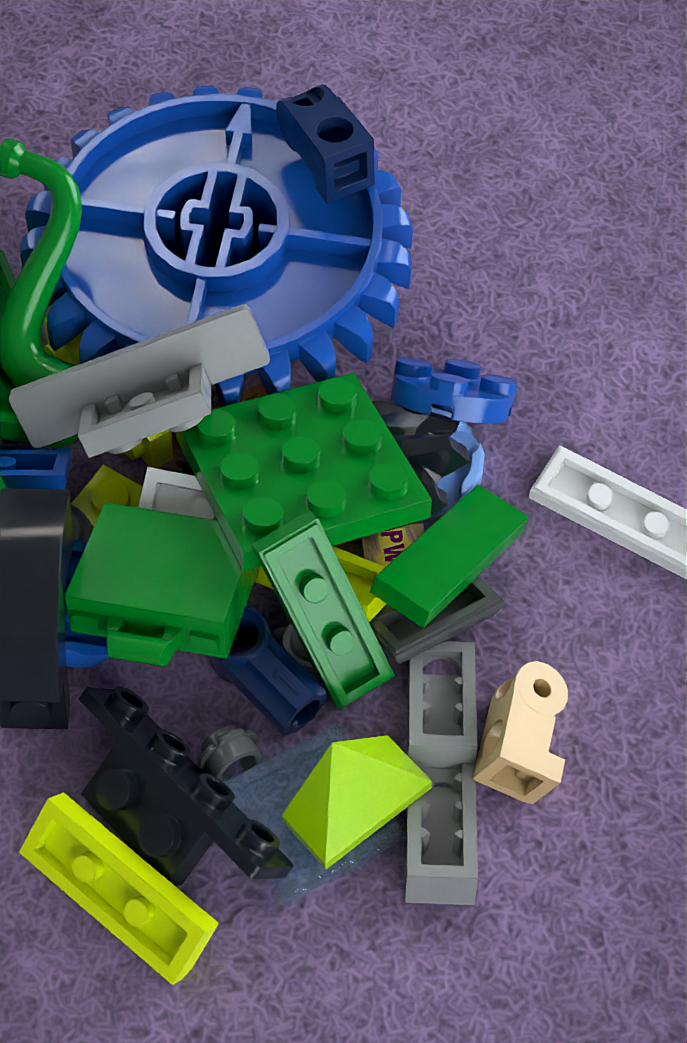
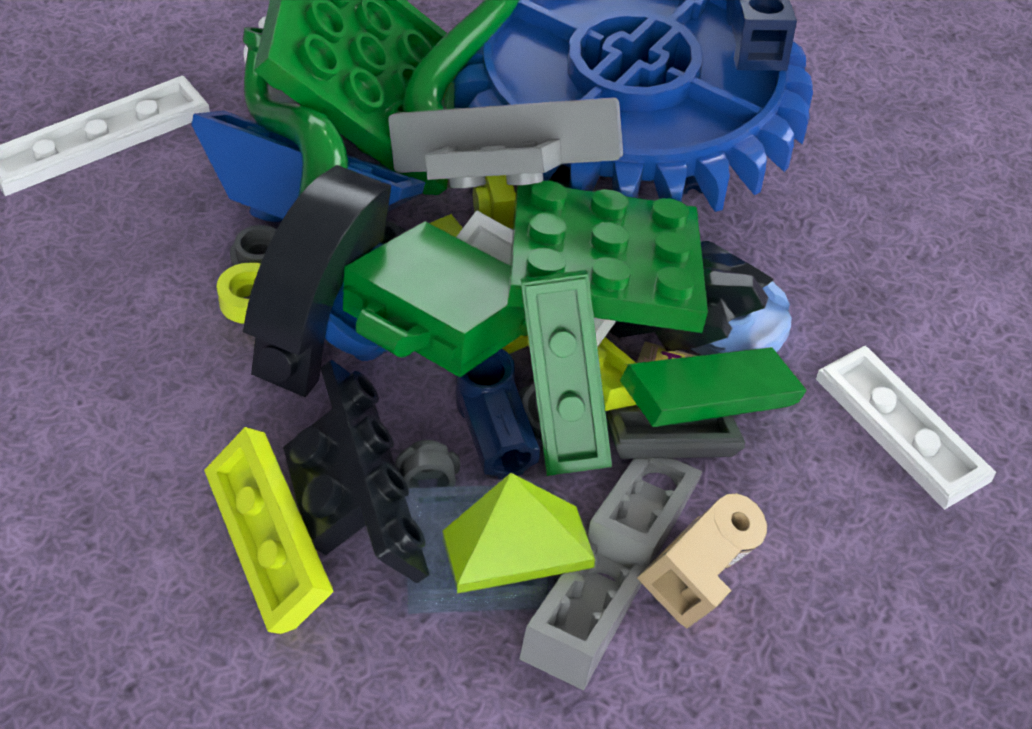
camera: 25 degrees right, 10 degrees down
(453, 389) = (785, 259): blue plate -> none

